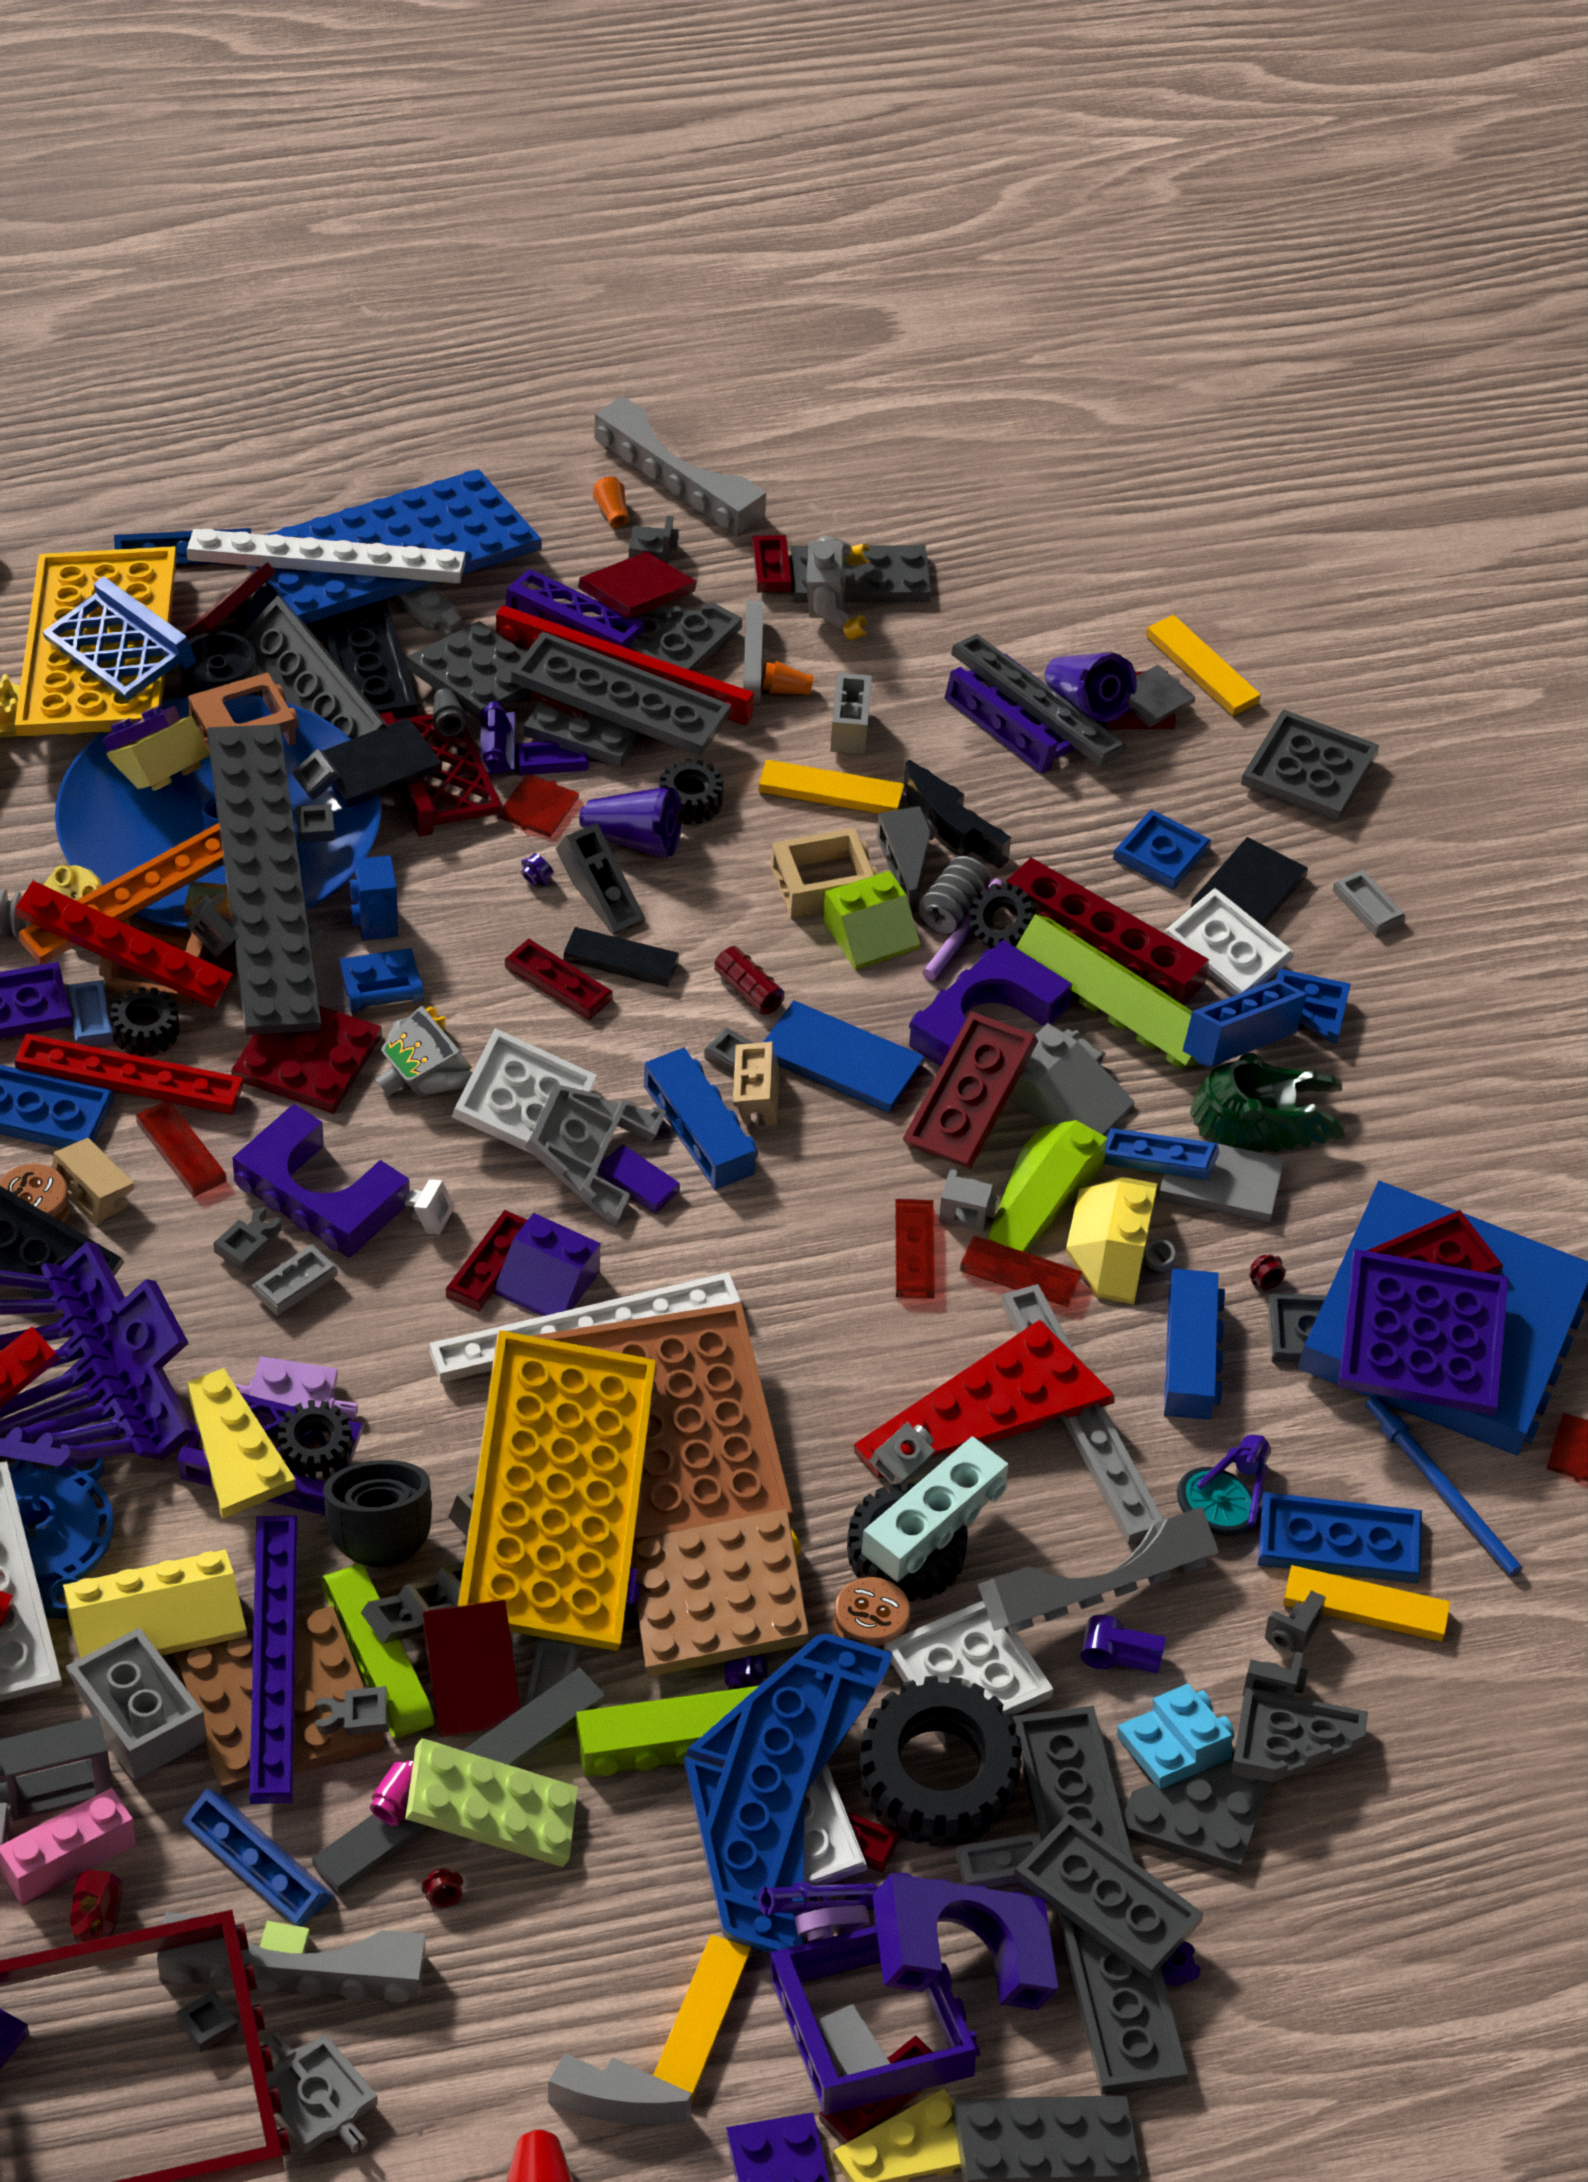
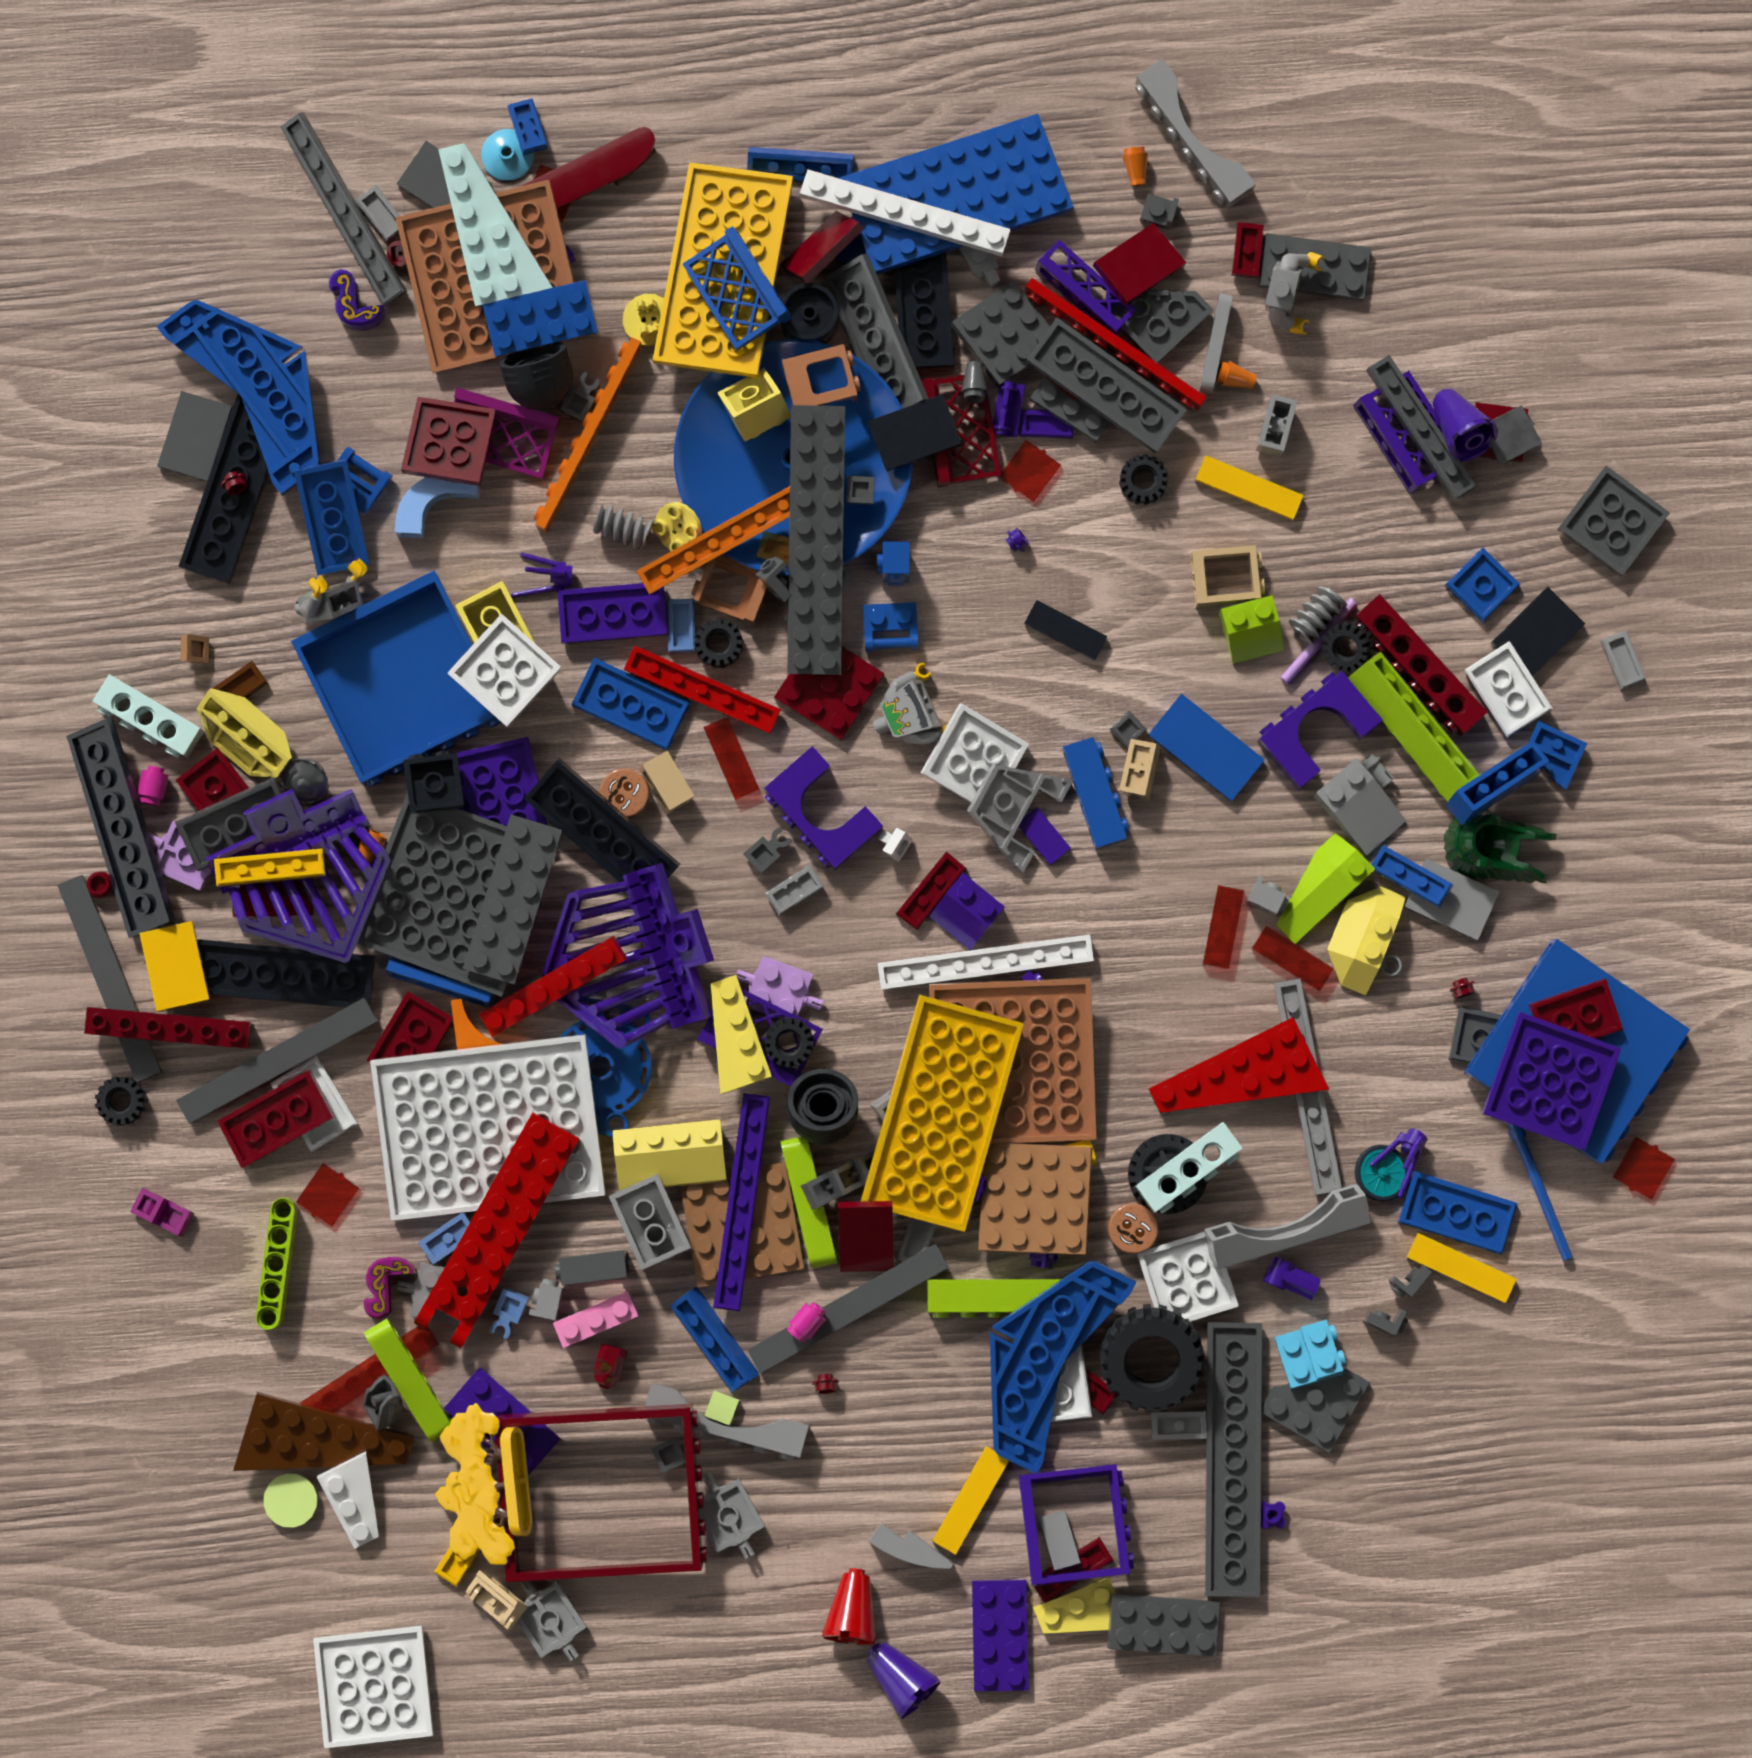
camera: 15 degrees right, 35 degrees up
(123, 944) = (708, 590): red plate -> none
(152, 722) = (744, 386): dark purple plate -> none
(316, 774) = (867, 442): flat silver tile -> none
(361, 1713) = (791, 1257): dark grey plate -> none
(492, 1802) = (863, 1338): yellowish green plate -> none
(558, 979) = (1017, 643): dark red tile -> none
(599, 878) = (1061, 559): dark grey slope -> none
(638, 820) = (1096, 509): dark purple cone -> none
(749, 980) = (1152, 671): dark red axle -> none
(780, 1899) = (1046, 1443): dark purple pin -> none
(828, 1921) = (1061, 1456): lavender plate -> none
(893, 1463) = (1178, 1103): light grey brick -> none
(905, 845) = (1292, 558): dark grey slope -> none
(952, 823) = (1324, 526): black slope -> none
(970, 1090) = (1288, 809): dark red plate -> none
(1007, 1923) = (1109, 1475): dark purple arch -> none
(1109, 1896) = (1238, 1471): dark grey plate -> none
(1192, 1344) = (1395, 1044): blue brick -> none
(1203, 665) = (1557, 402): yellow tile -> none
(1292, 1734) = (1383, 1368): dark grey plate -> none

